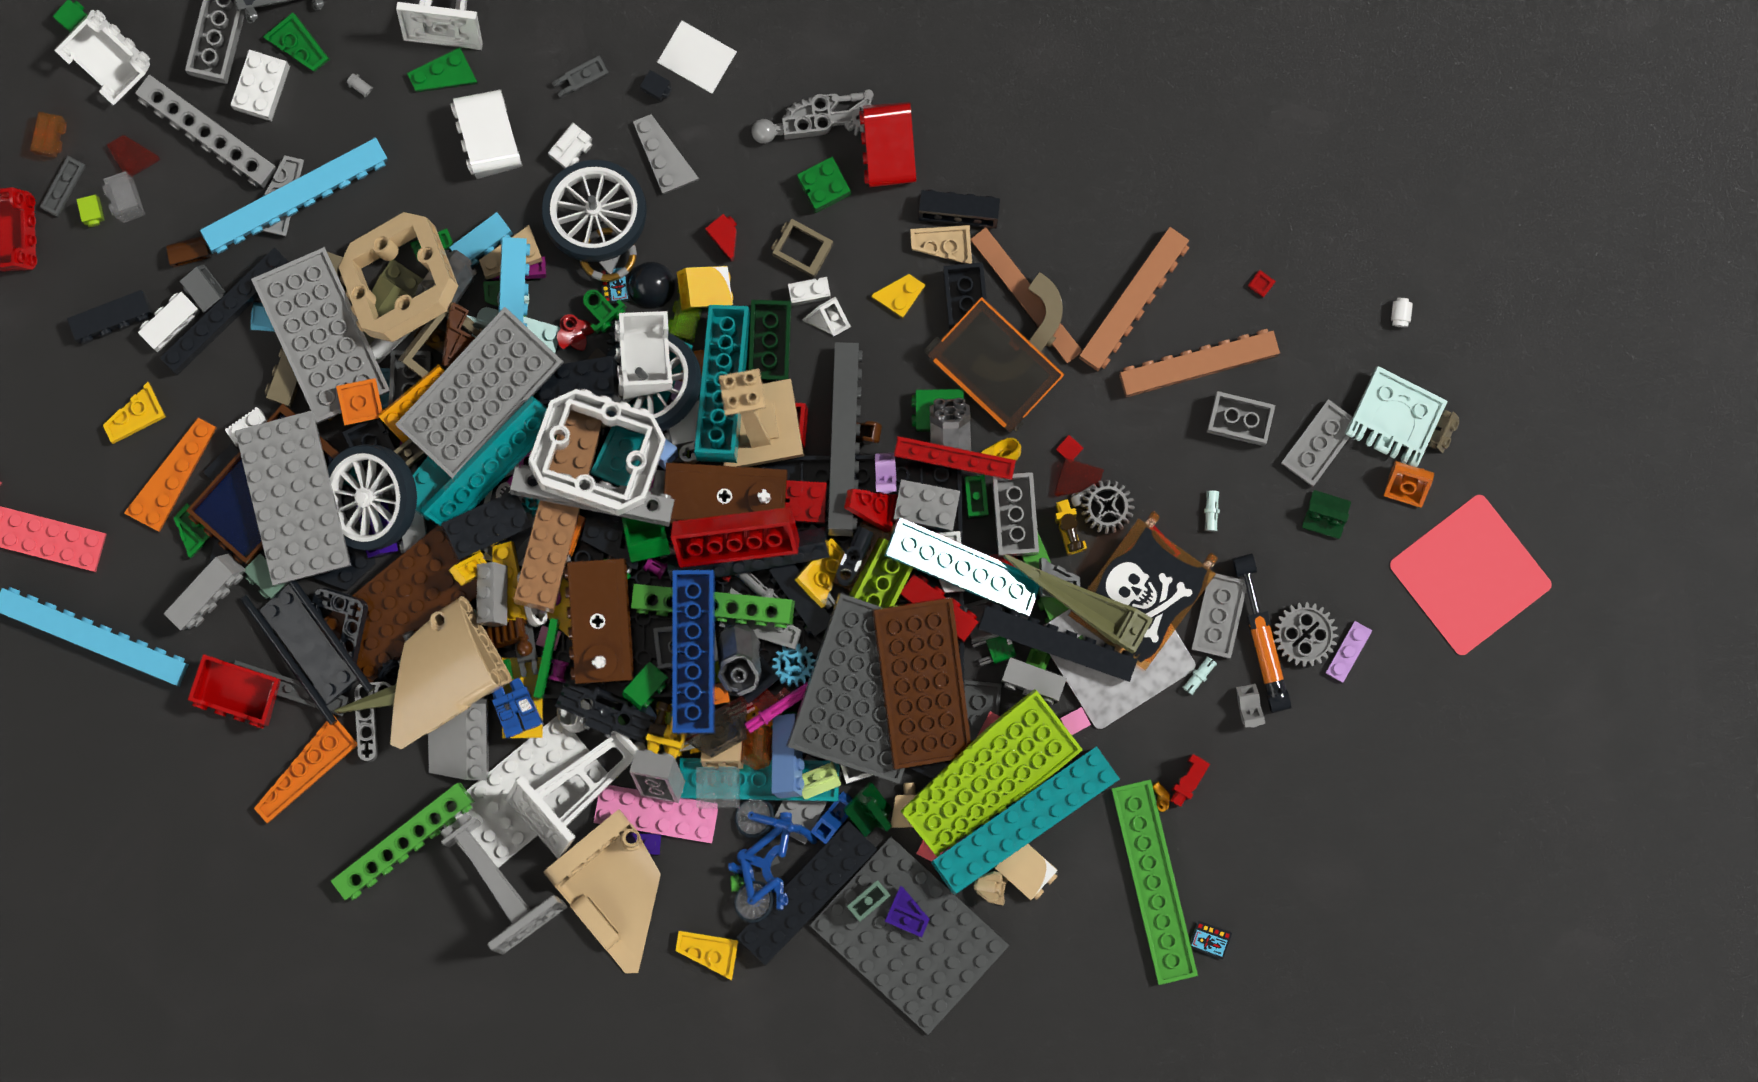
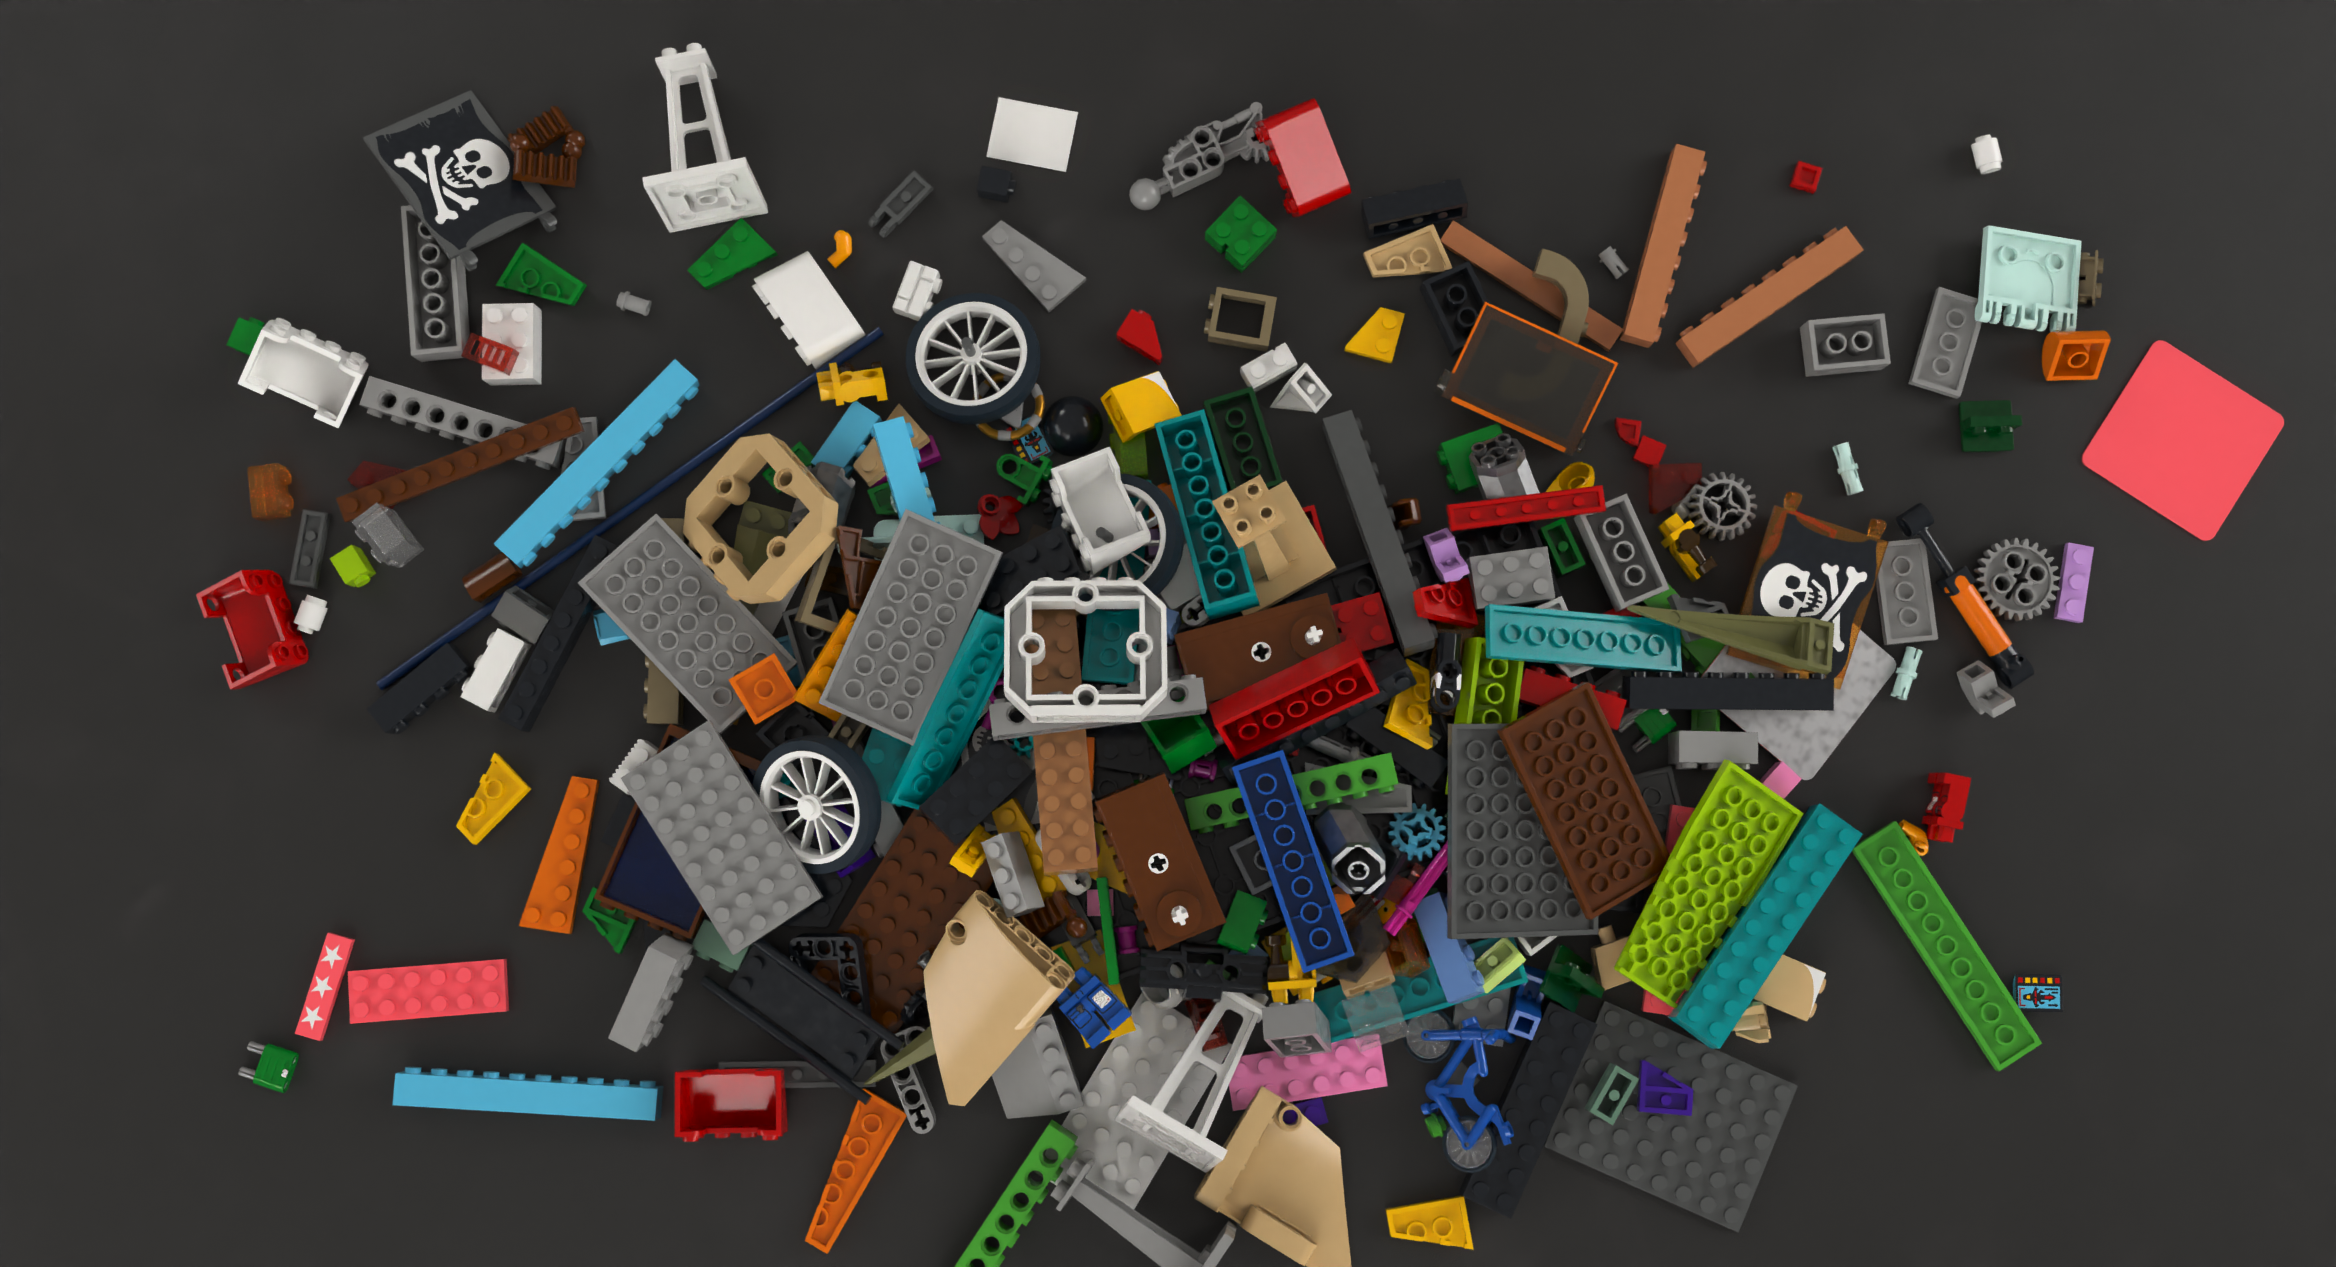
camera: 20 degrees left, 0 degrees up
(48, 235) = (311, 614): none -> white brick
(194, 162) = (462, 463): none -> reddish brown plate
(256, 97) = (507, 362): none -> clear red slope
(310, 234) = (630, 508): none -> dark blue piece
(497, 199) = (850, 384): none -> yellow hips
(527, 95) = (843, 248): none -> light orange arm
(590, 742) = (1195, 1015): none -> clear red slope
(1060, 428) = (1628, 430): none -> red tile
(1093, 297) = (1612, 260): none -> light grey pin

